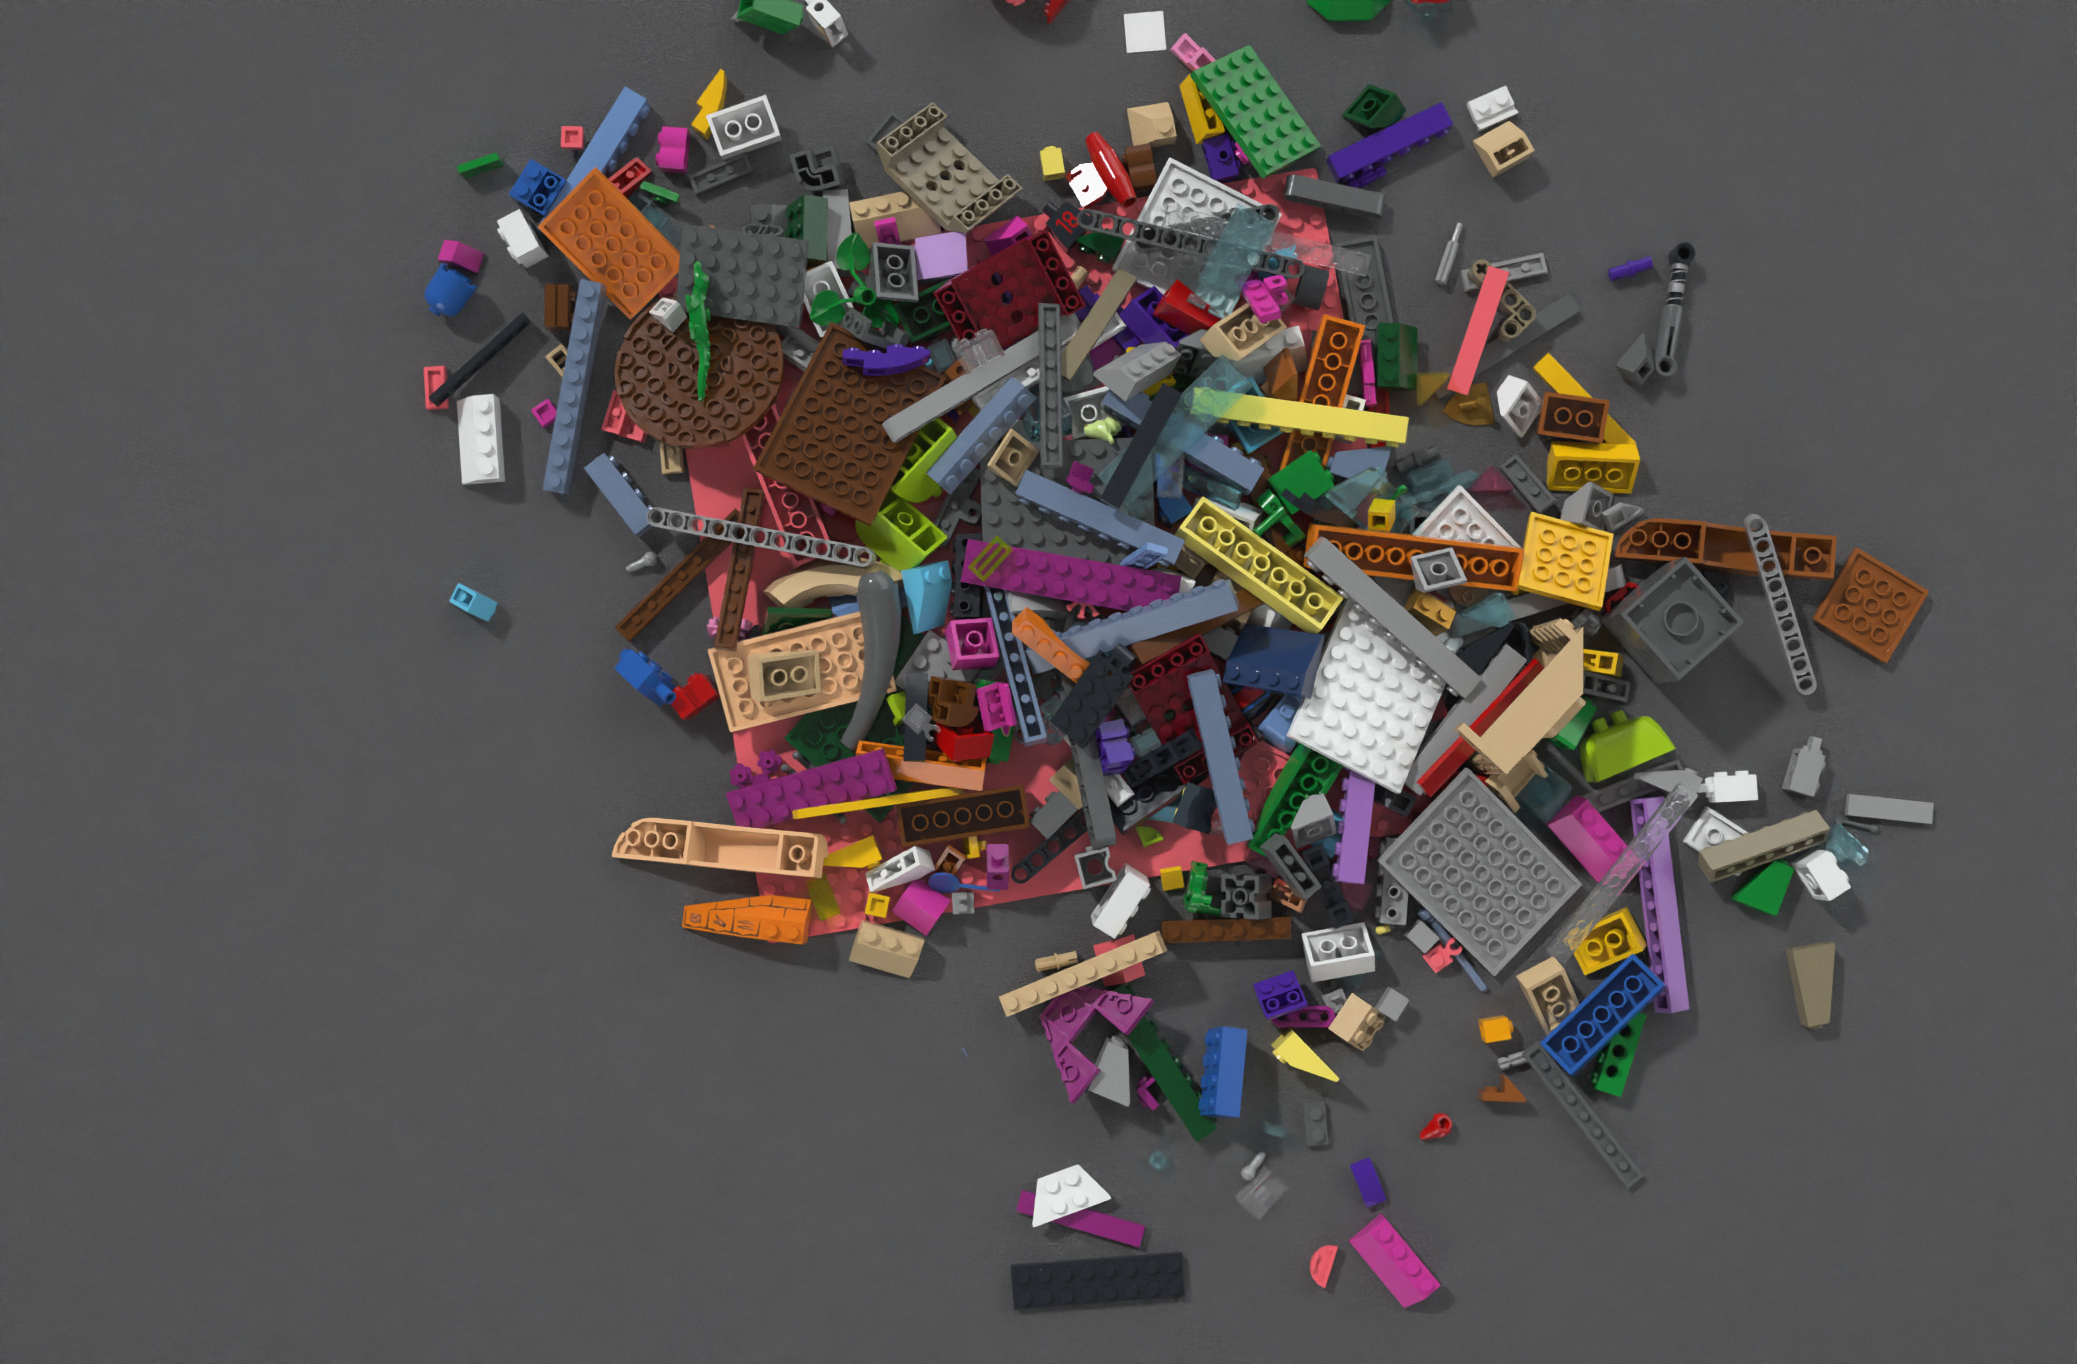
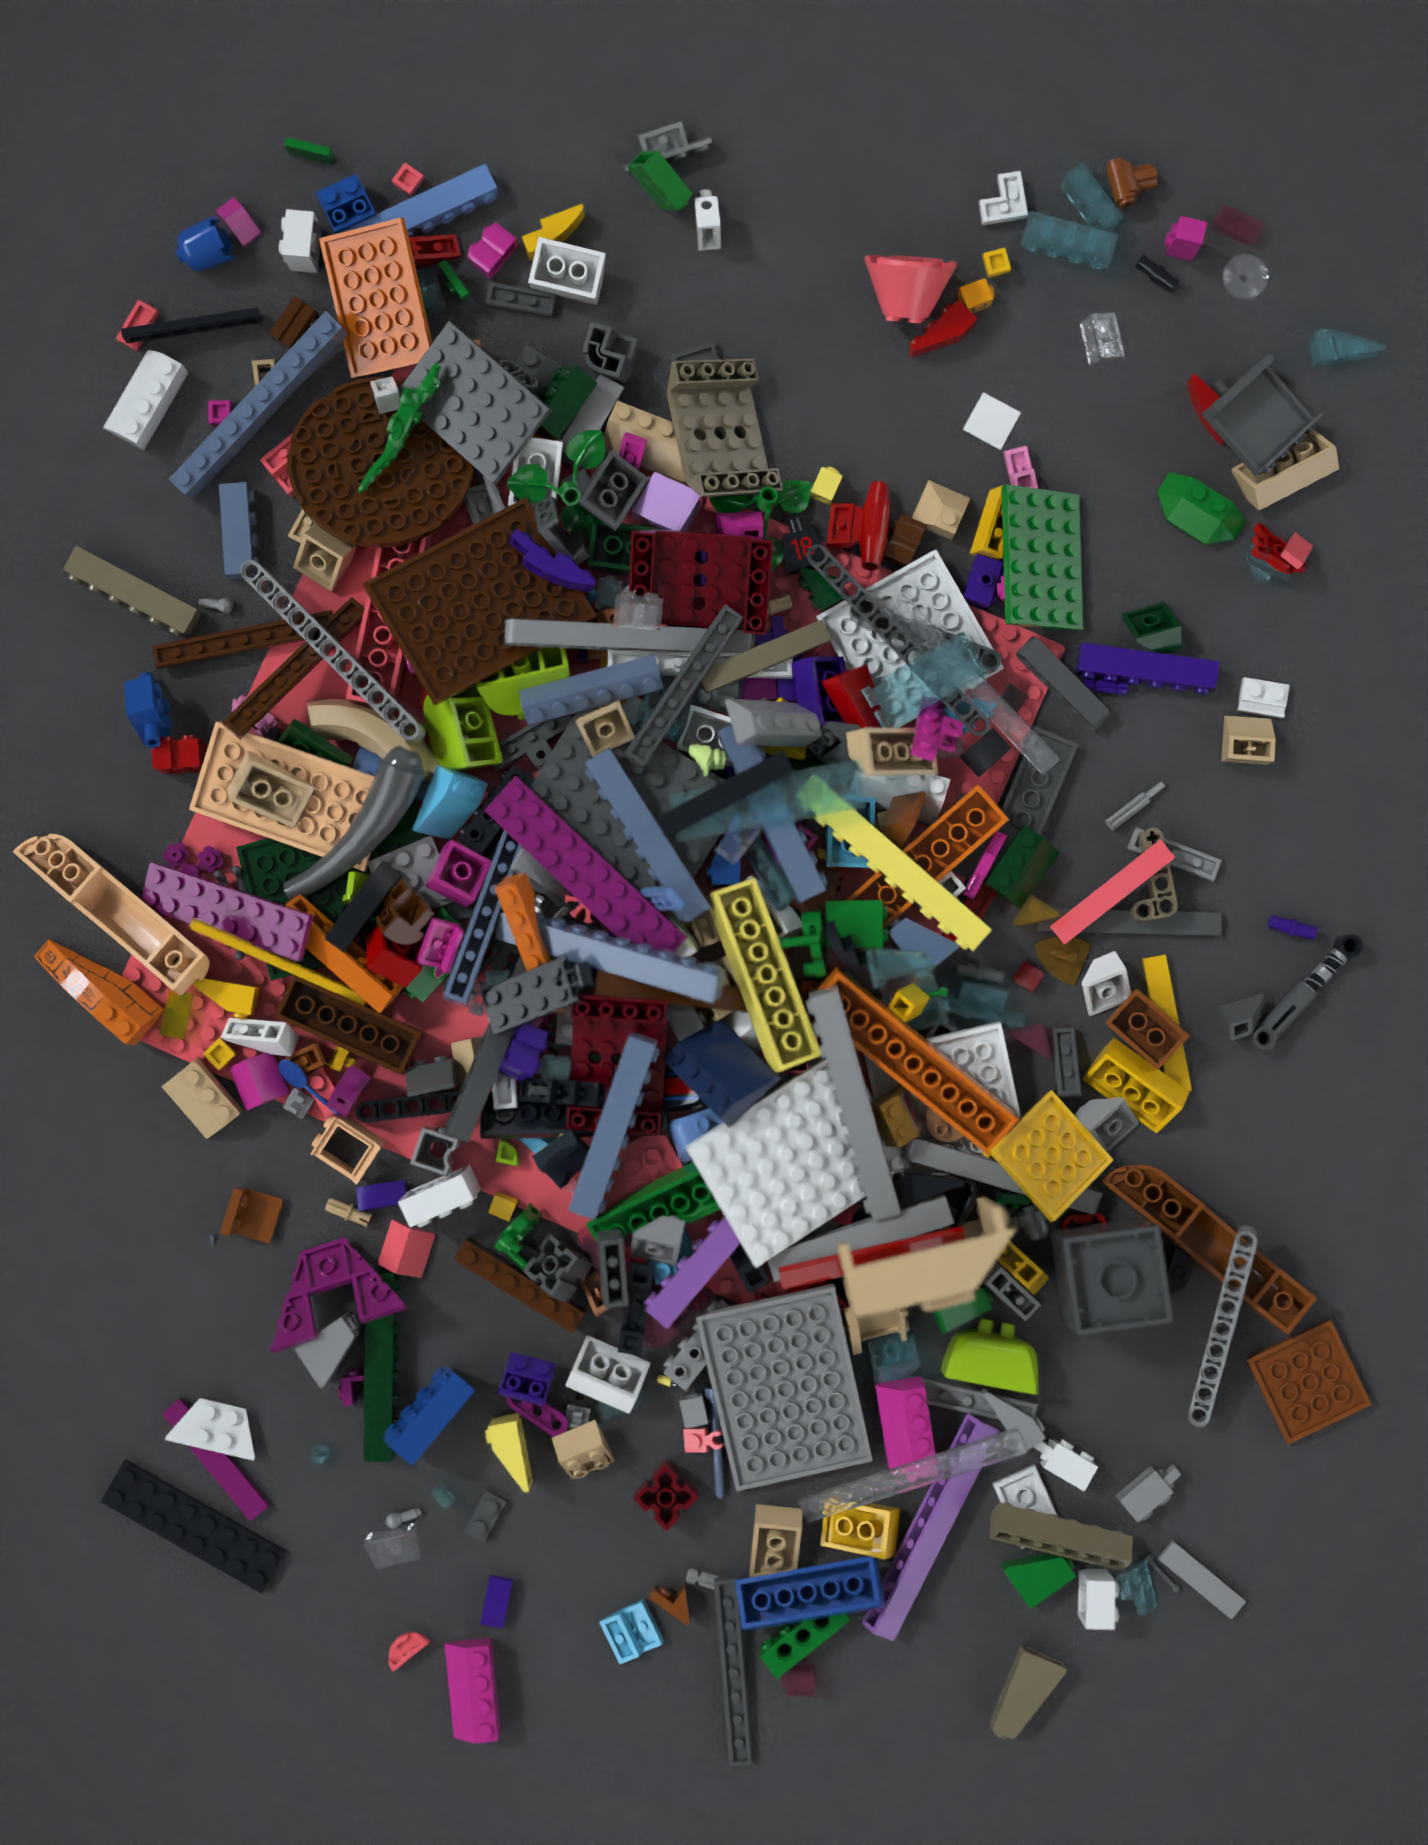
camera: 35 degrees right, 0 degrees up
(473, 602) = (41, 540): medium azure slope -> none
(570, 595) = (131, 591): none -> dark tan brick
(702, 471) = (323, 557): none -> tan slope
(919, 720) = (362, 911): clear plate -> none
(984, 1012) = (252, 1214): none -> dark orange bracket
(1003, 544) = (543, 802): clear neon green tile -> none
(1023, 893) = (355, 1129): none -> light nougat window
(1033, 193) = (792, 500): none -> green plant
(1072, 932) = (380, 1195): none -> dark purple slope
(1079, 478) = (653, 787): magenta bracket -> none
(1083, 973) = (362, 1240): tan brick -> none
(1303, 230) = (1014, 697): none -> clear smoke plate
(1392, 1003) = (625, 1454): light grey panel -> none
(1437, 570) = (923, 1087): light grey slope -> none
(1437, 1127) = (592, 1594): red animal -> none
(1450, 1025) = (666, 1509): none -> dark red brick
(1455, 438) = (1028, 977): none -> dark red slope
(1485, 1136) = (631, 1631): none -> medium azure slope
(1491, 611) = (950, 1156): clear light blue slope -> none
(1495, 1028) = (705, 1540): light orange brick -> none
(1557, 613) = (1014, 1200): none -> dark green bracket
(1620, 515) = (1133, 1146): light grey tile -> none
(1638, 1087) = (799, 1681): none -> clear pink brick

